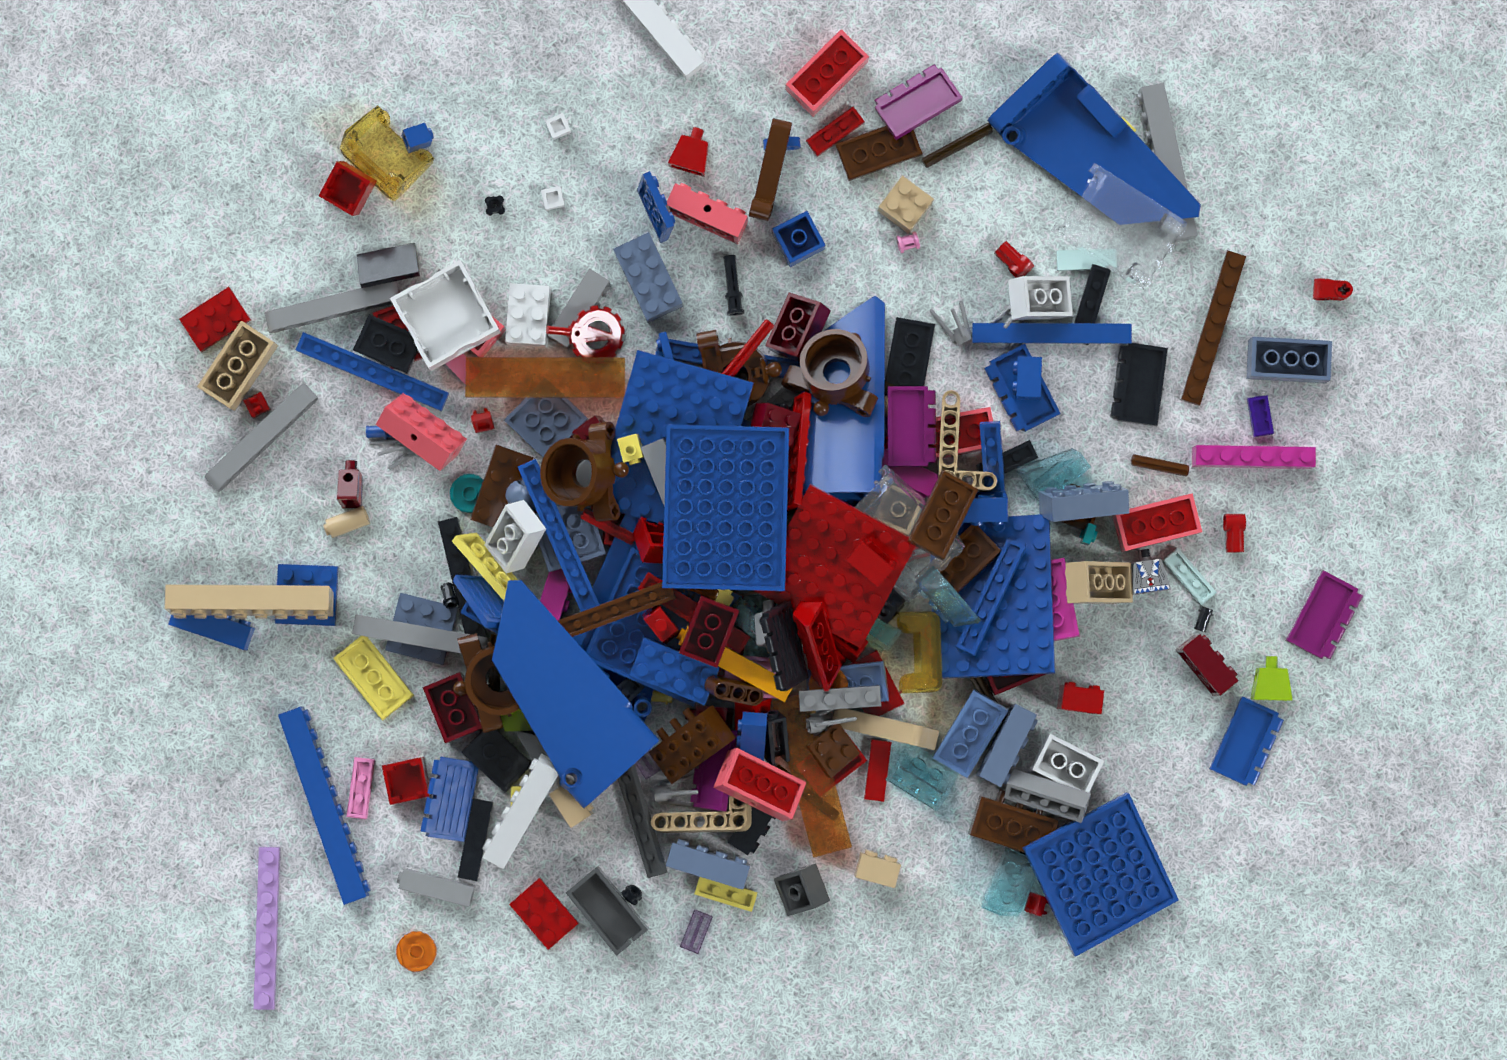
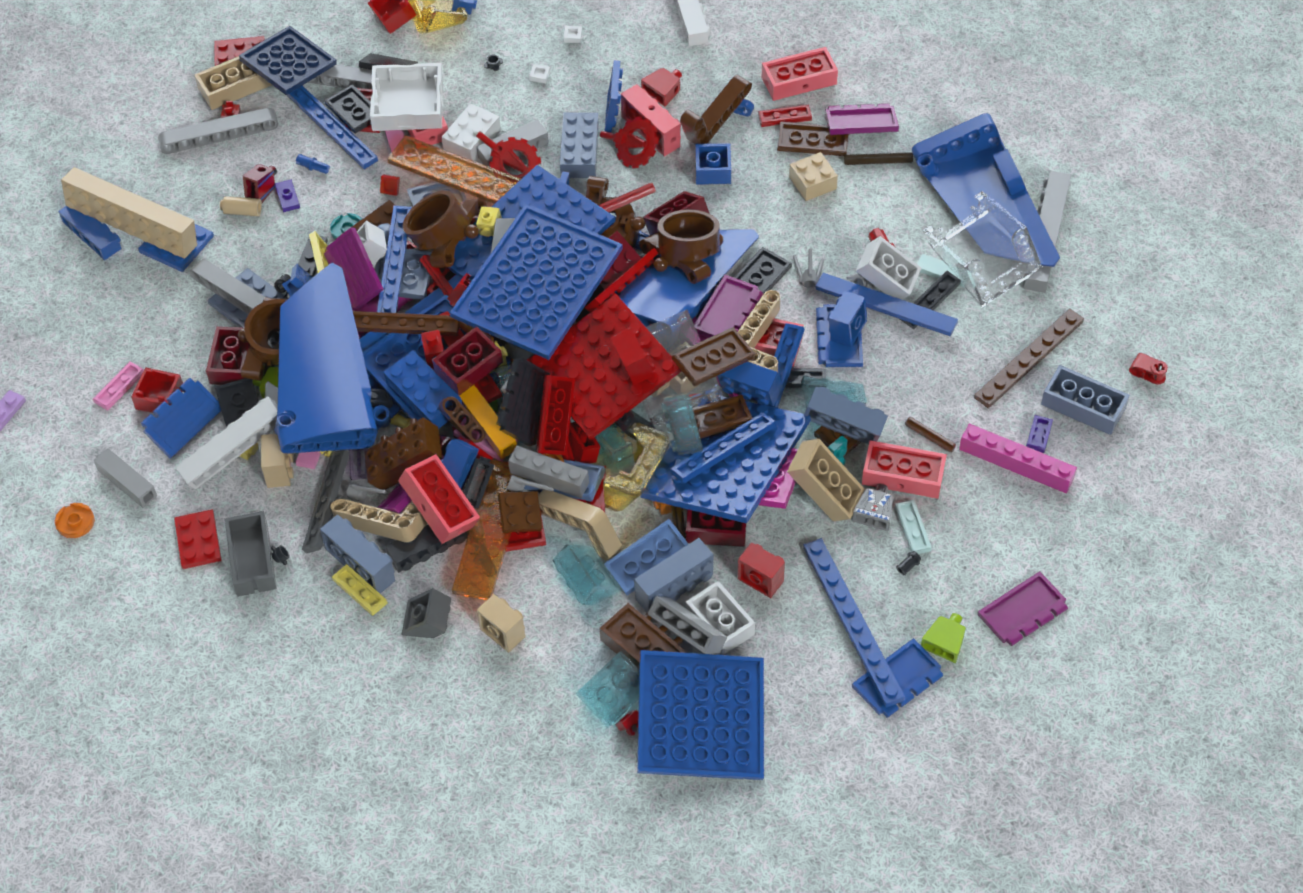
camera: 30 degrees right, 30 degrees down
(286, 321) = (287, 60): none -> dark blue plate
(323, 805) = (80, 384): blue brick -> none
(373, 677) = (185, 316): light yellow tile -> none
(383, 482) = (287, 195): none -> plate
(405, 450) = (322, 177): light grey plant -> none
(421, 431) = (338, 166): coral brick -> none
(475, 839) = (168, 471): black tile -> none
(524, 563) = (358, 270): none -> magenta hinge
(690, 947) = (312, 607): clear purple tile -> none
(694, 250) = (626, 139): none -> red bar
(733, 295) = (643, 175): black pin -> none
(877, 770) = (543, 563): red tile -> none
(908, 242) = (797, 202): bright pink bush -> none
(1141, 384) = (943, 371): black hinge -> none
(1182, 706) = (854, 623): none -> plate
(1207, 664) = (892, 592): dark red brick -> none
(1234, 526) = (972, 506): red piece -> none

